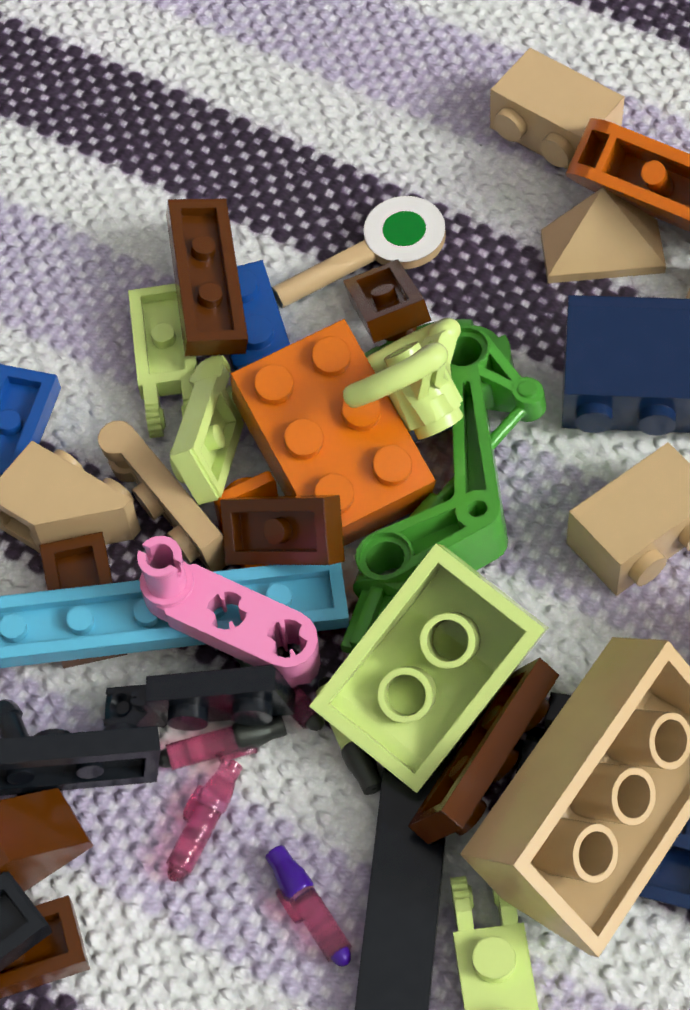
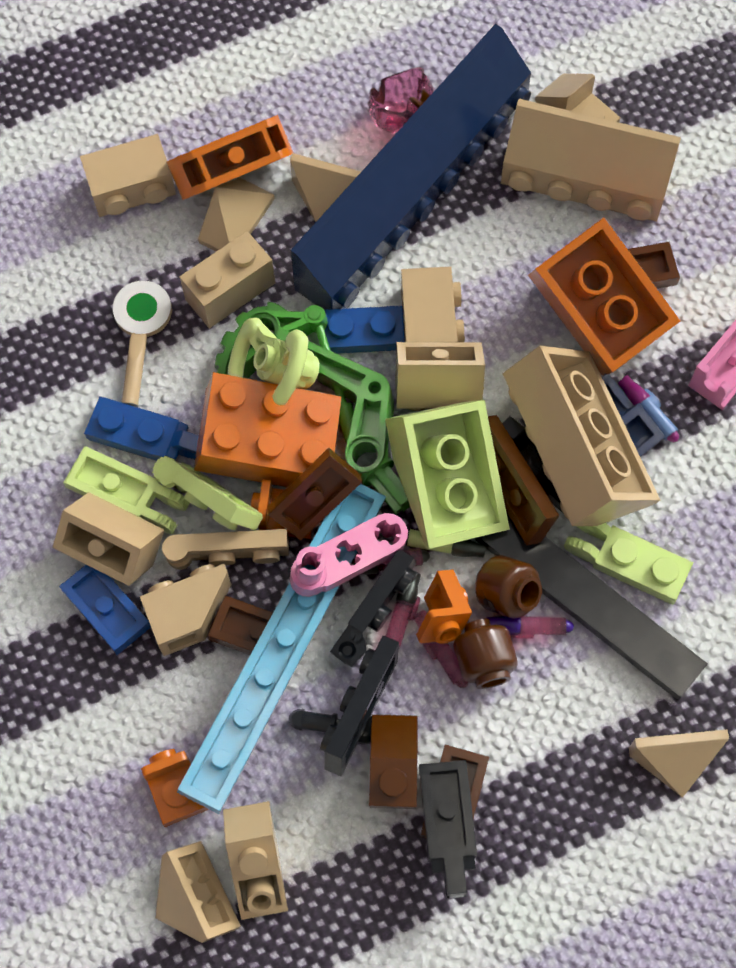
camera: 60 degrees left, 10 degrees up
(85, 369) = (108, 538): none -> tan brick
(206, 277) = (97, 431): reddish brown plate -> none
(223, 869) = (485, 654): none -> reddish brown head
(229, 796) = (447, 609): none -> orange bracket
(333, 839) = (508, 586): none -> reddish brown head
(387, 302) = (191, 347): reddish brown plate -> none
(505, 283) = (228, 279): none -> tan brick
(559, 458) = (364, 329): none -> blue plate
(562, 576) = (438, 374): none -> tan brick

